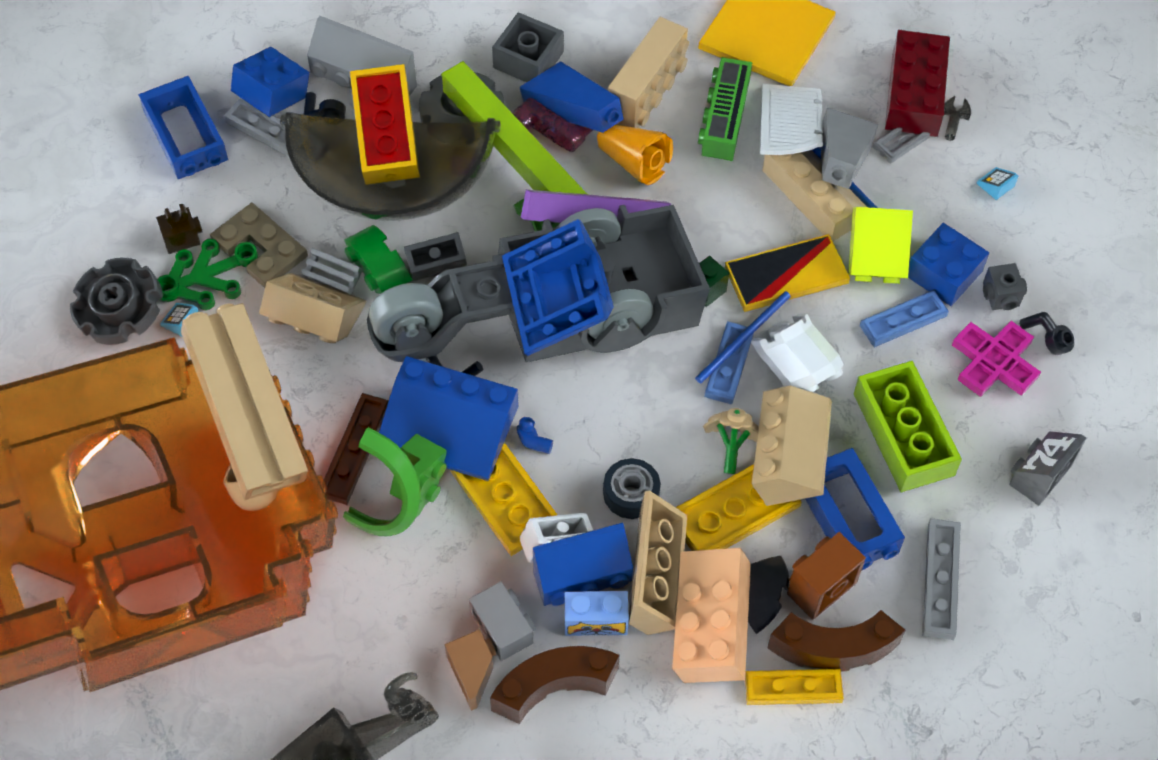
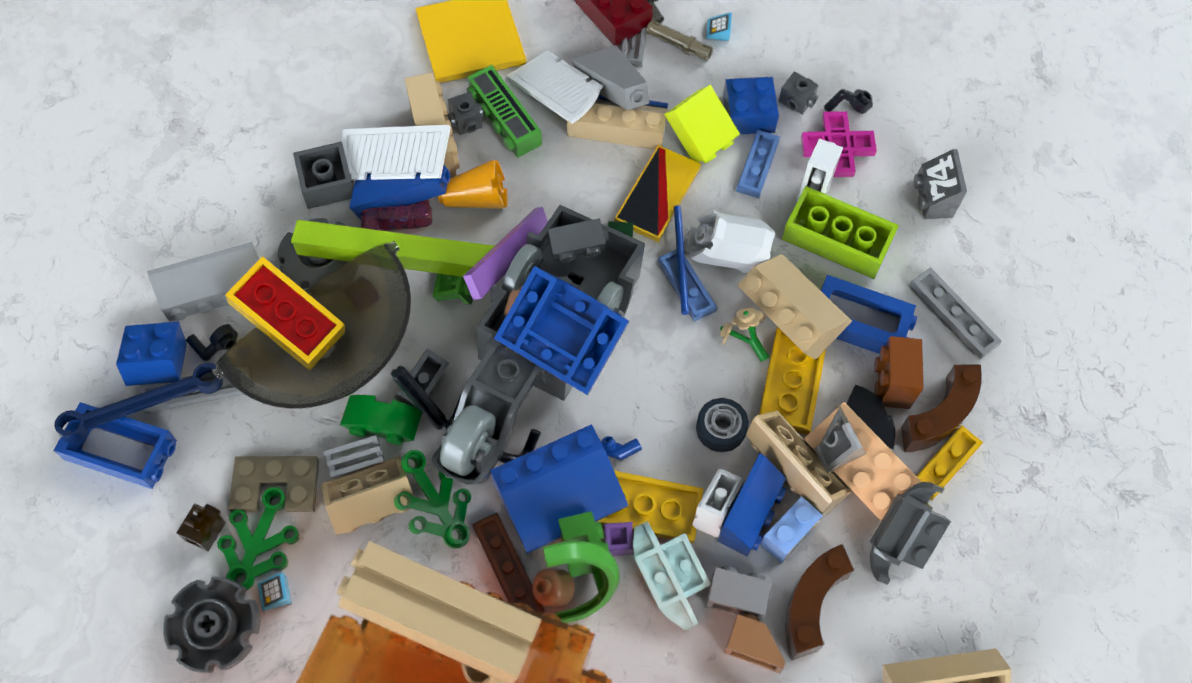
camera: 45 degrees left, 5 degrees up
(213, 103) = (136, 403): none -> dark blue piece
(348, 353) = (436, 504): none -> green plant
(368, 486) = (553, 587): none -> medium nougat head
(408, 249) = (419, 397): none -> black axle
(455, 499) = (619, 538): none -> medium lavender slope
(463, 556) = (670, 573): none -> light aqua plate
(594, 69) = (396, 151): none -> white piece
(654, 239) = (578, 239): none -> dark grey brick
(685, 697) = (907, 531): none -> dark grey plate
(690, 85) = (465, 113): none -> dark grey brick
(701, 577) = (839, 443): none -> light grey slope
(937, 356) = (821, 167): none -> white brick
(950, 172) = (686, 43): none -> dark tan pin

